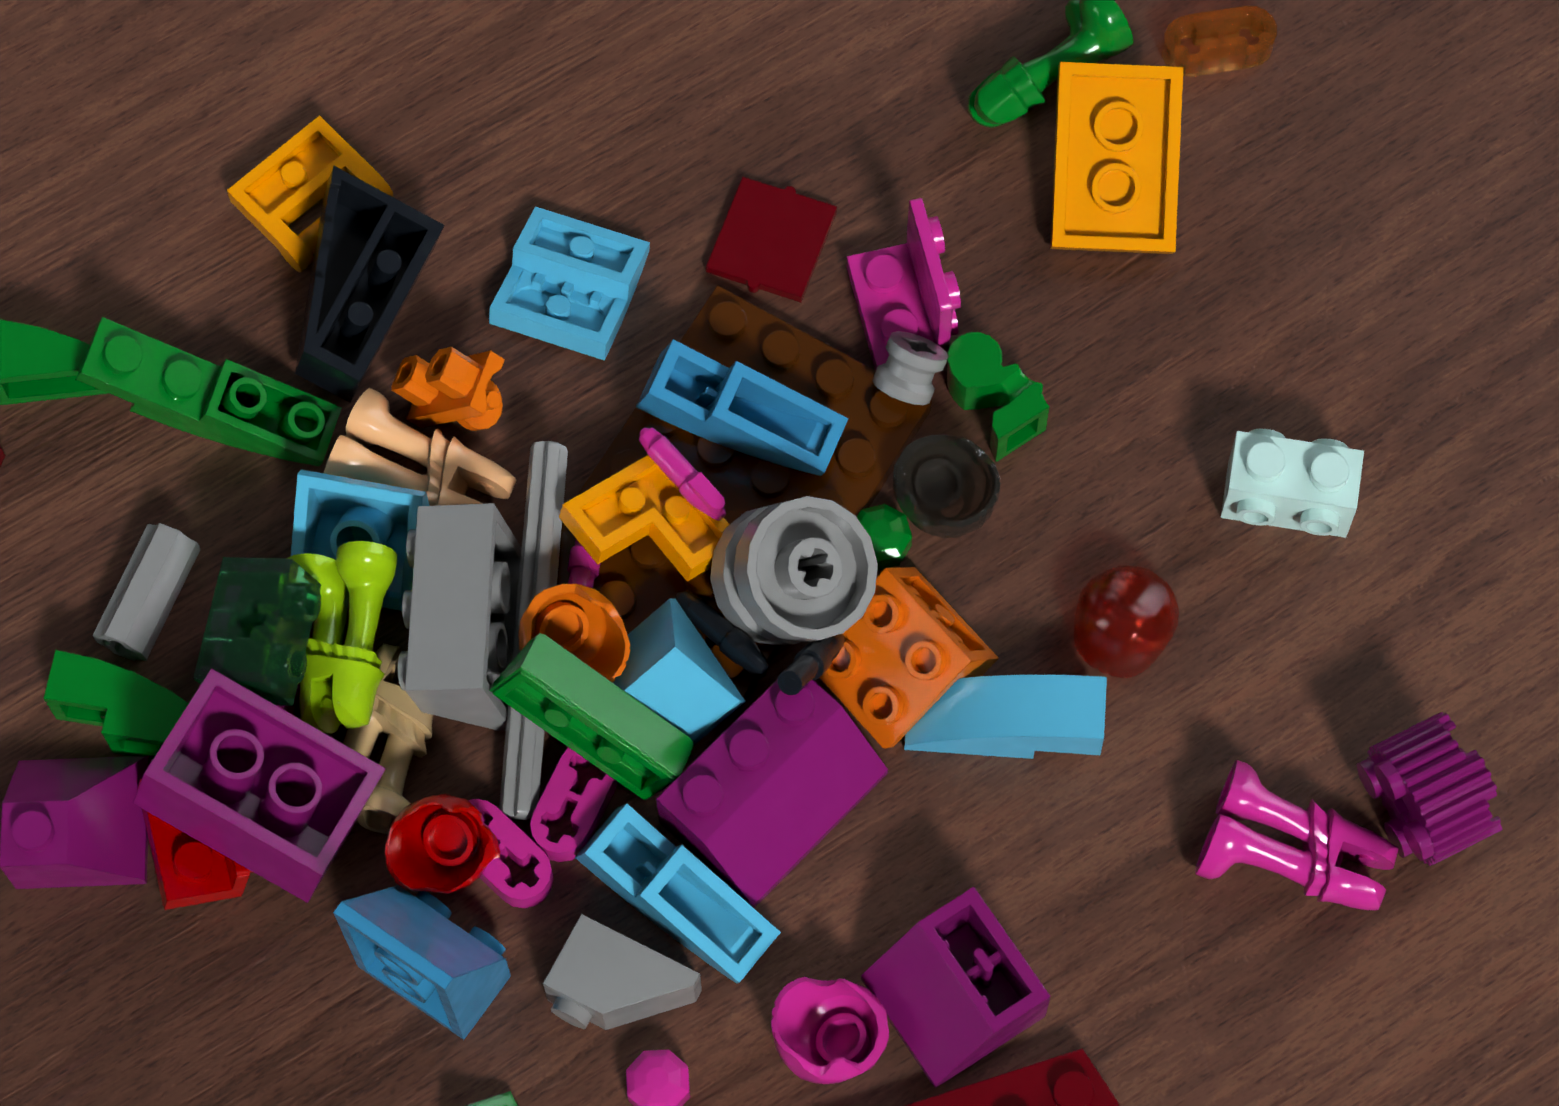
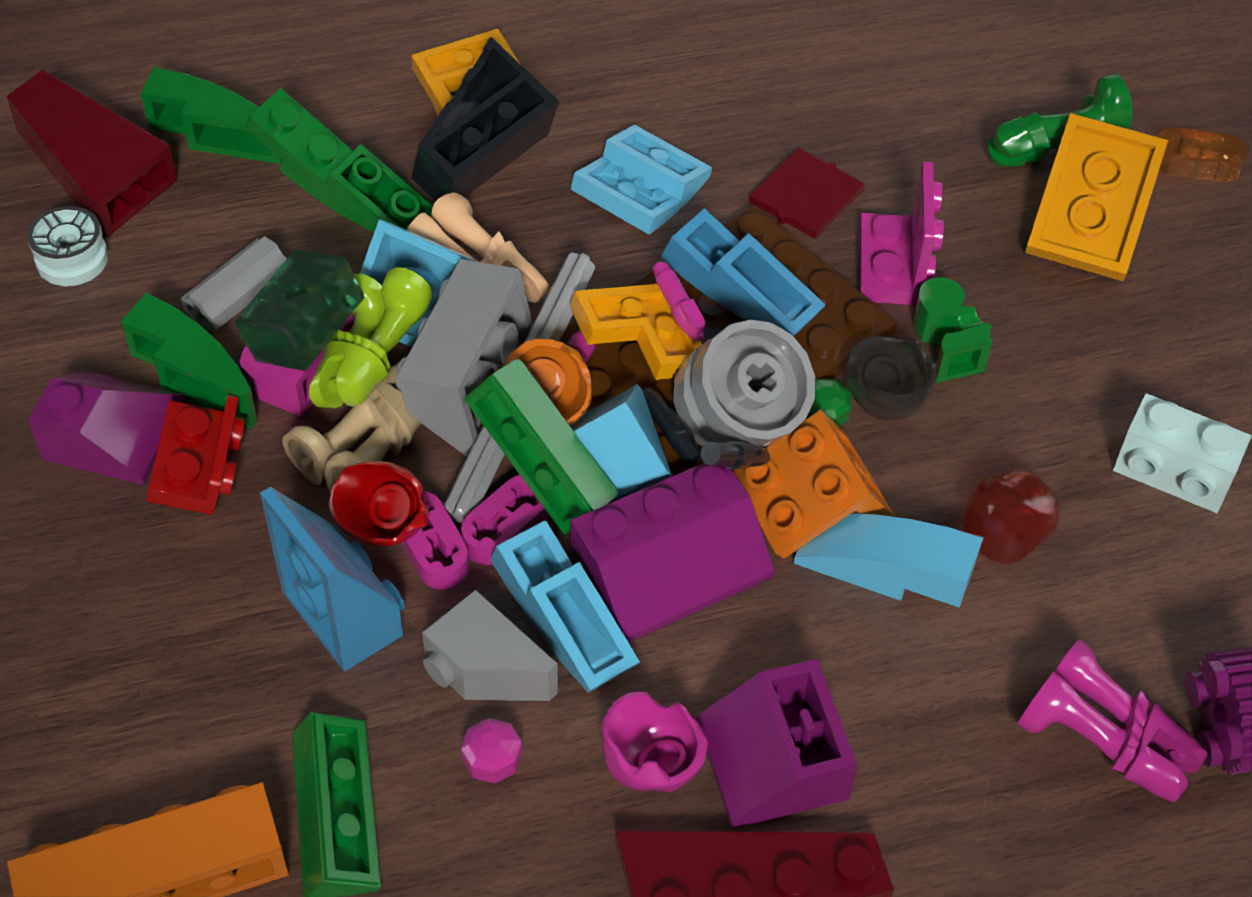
camera: 15 degrees right, 15 degrees down
(258, 785) = (250, 410): magenta slope -> none
(451, 389) = (522, 209): orange hips -> none
(910, 368) = (887, 289): light grey wheel -> none

